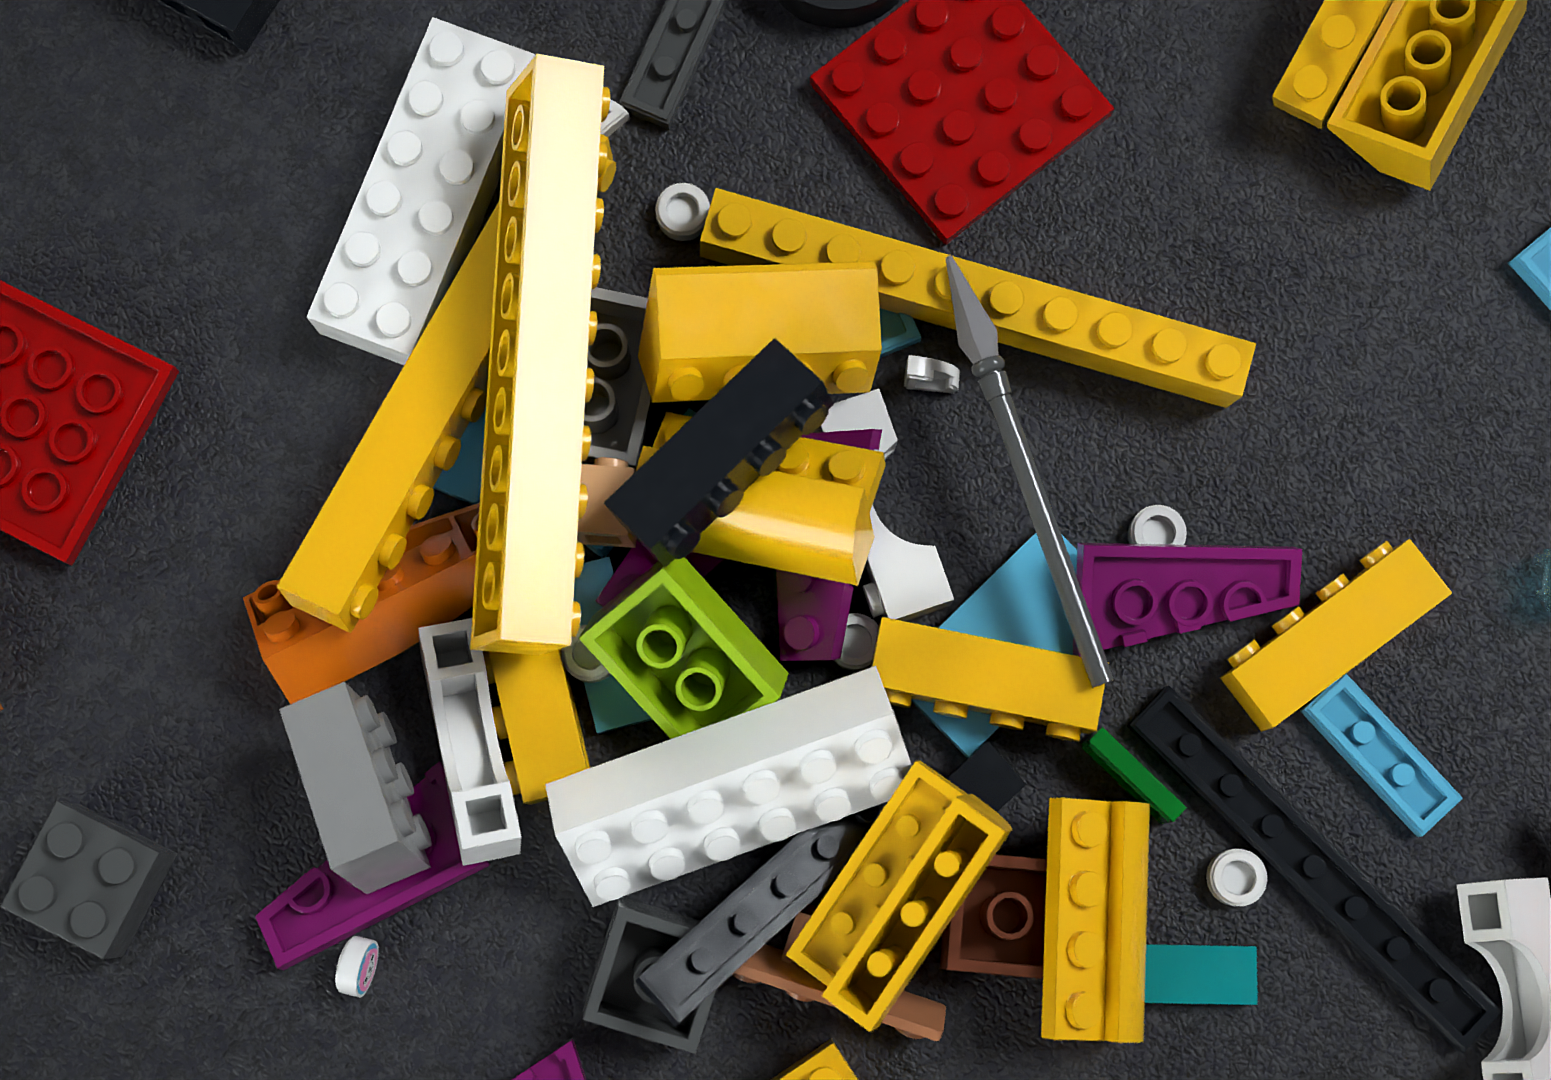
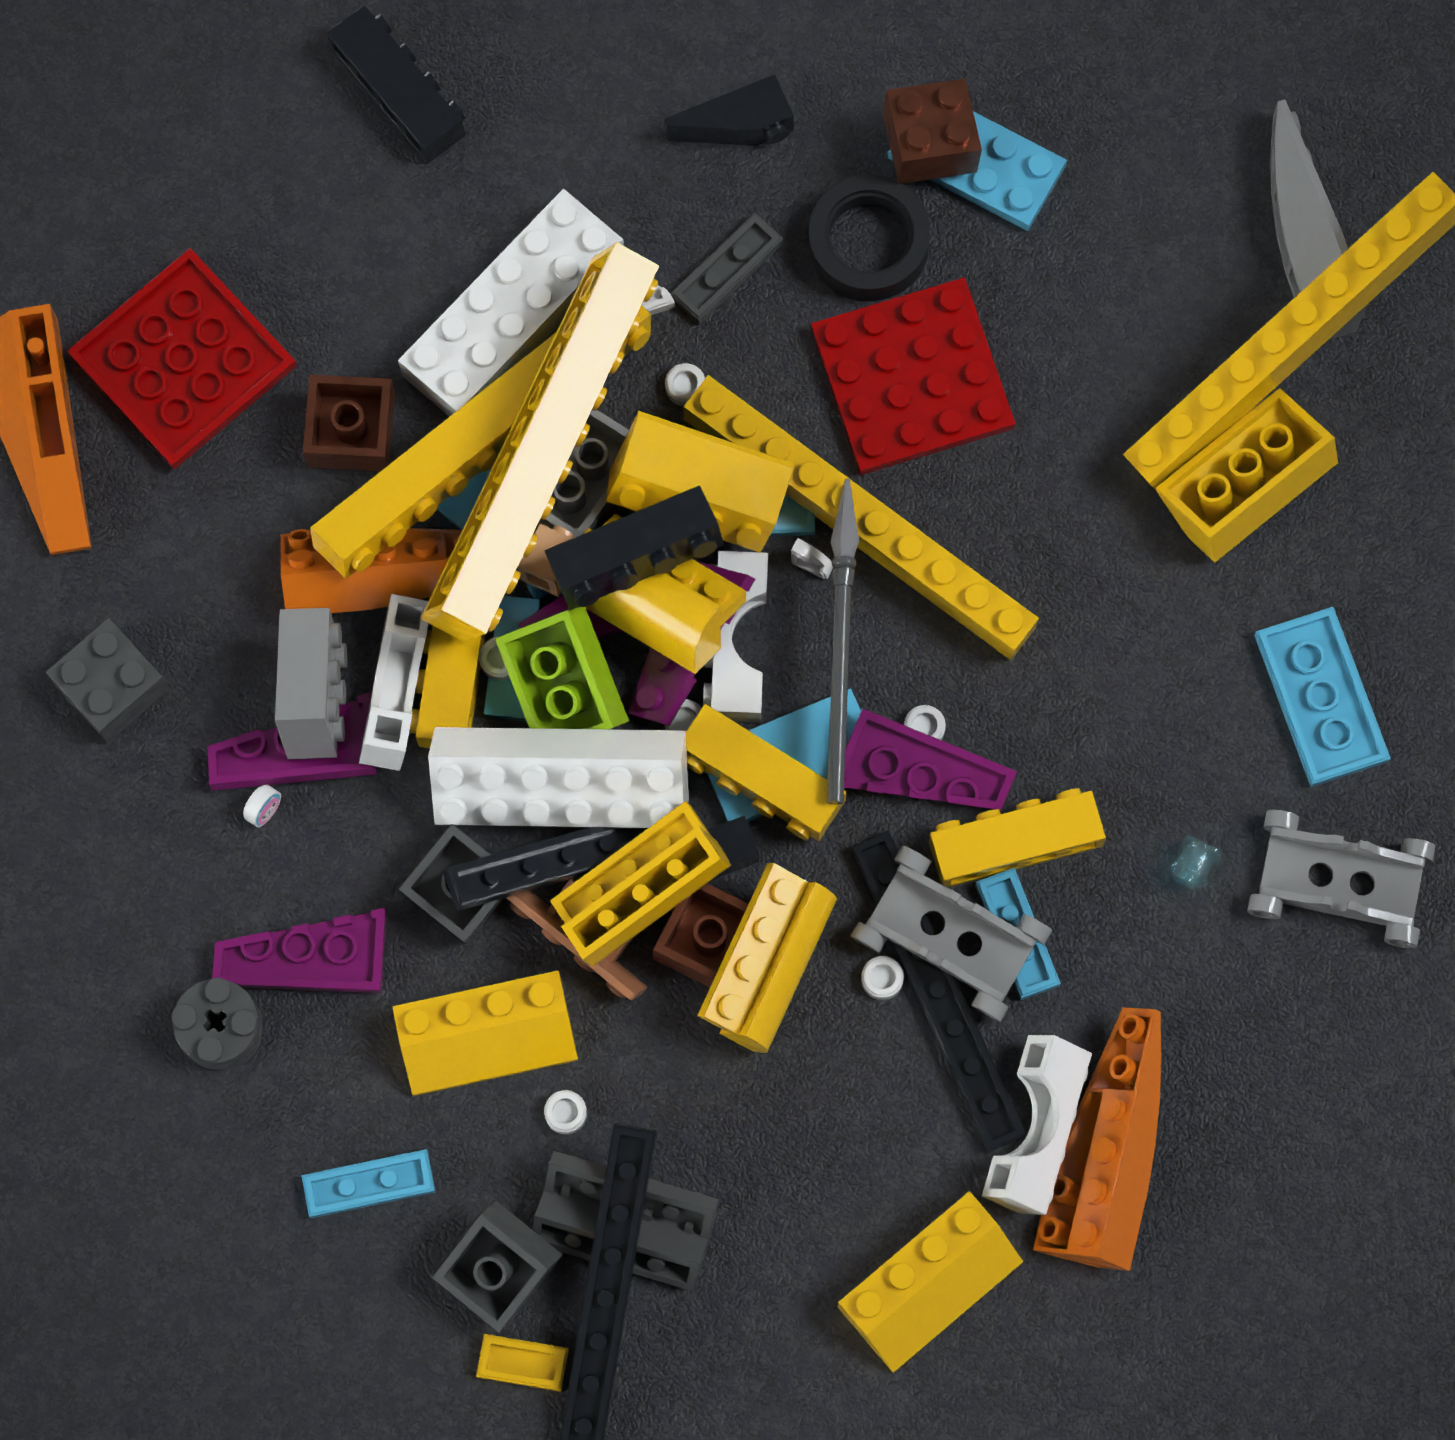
camera: 25 degrees right, 5 degrees down
(274, 421) = (349, 422): none -> copper brick
(1132, 776) = (836, 880): green tile -> none
(1201, 974) = (827, 1031): teal tile -> none
(1377, 782) = (914, 895): none -> light grey piece

